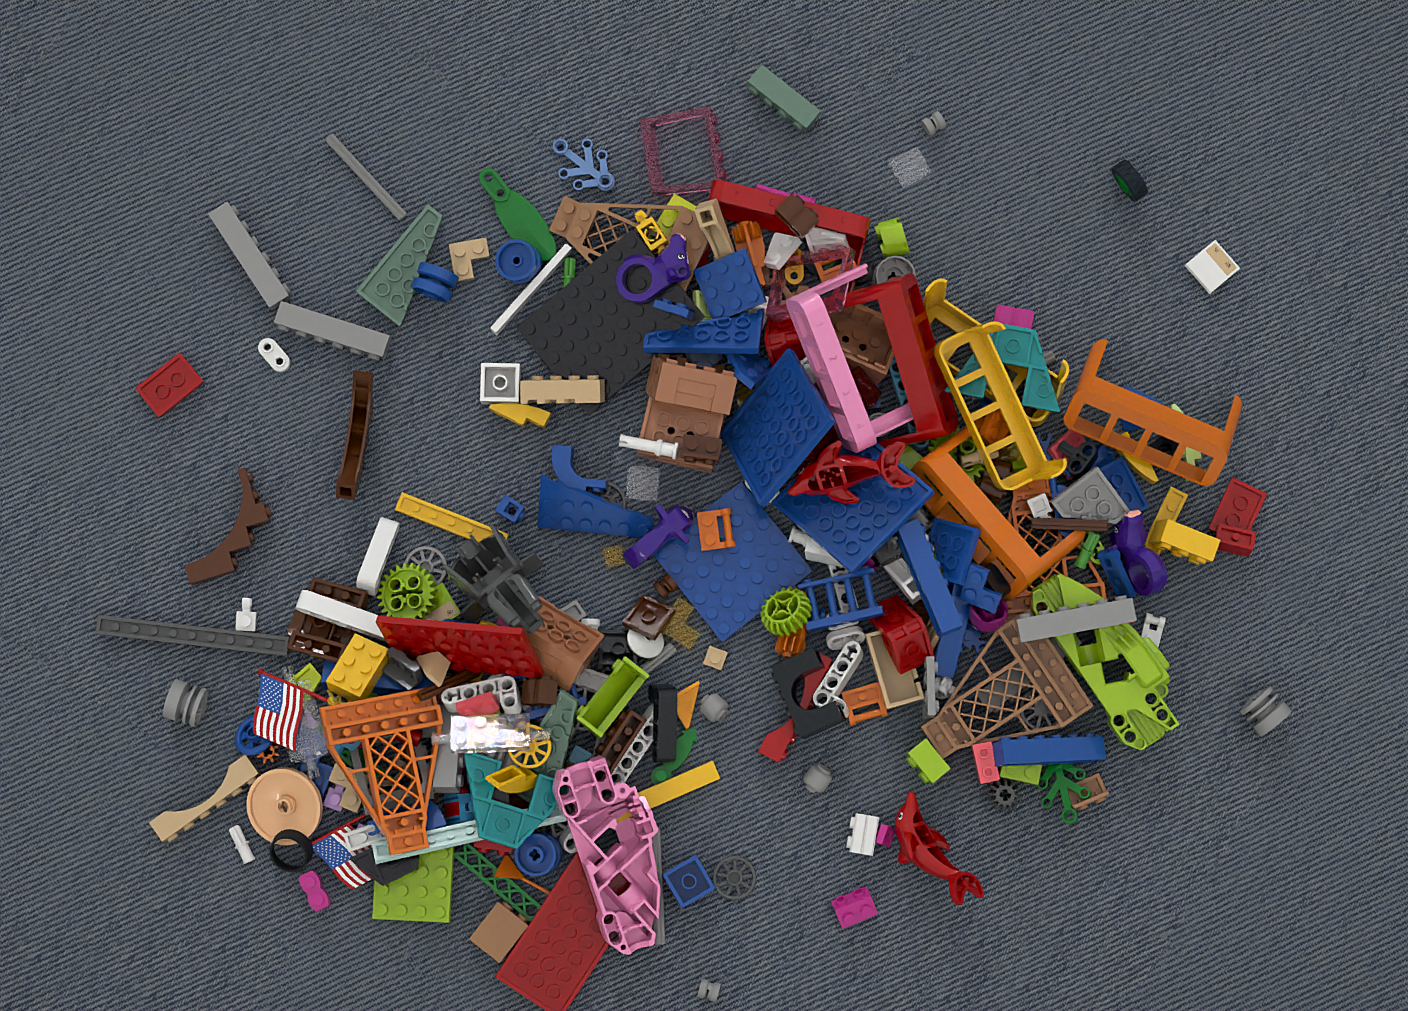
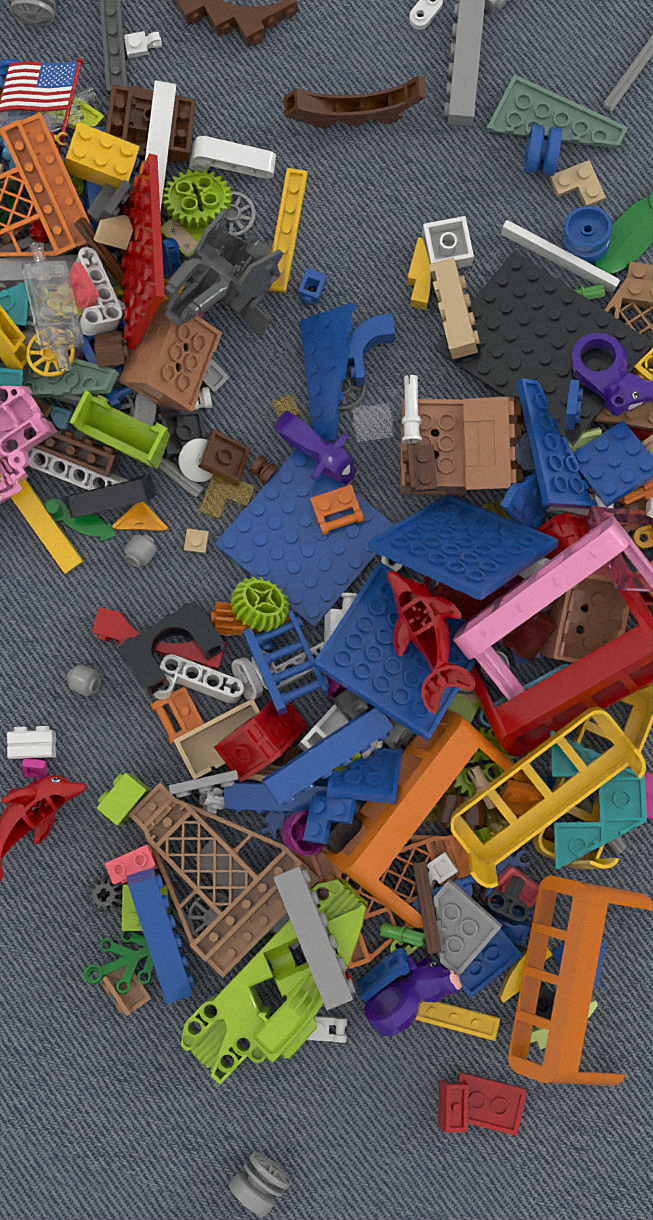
camera: 85 degrees right, 0 degrees up
(1184, 541) = (436, 1047): yellow brick -> none

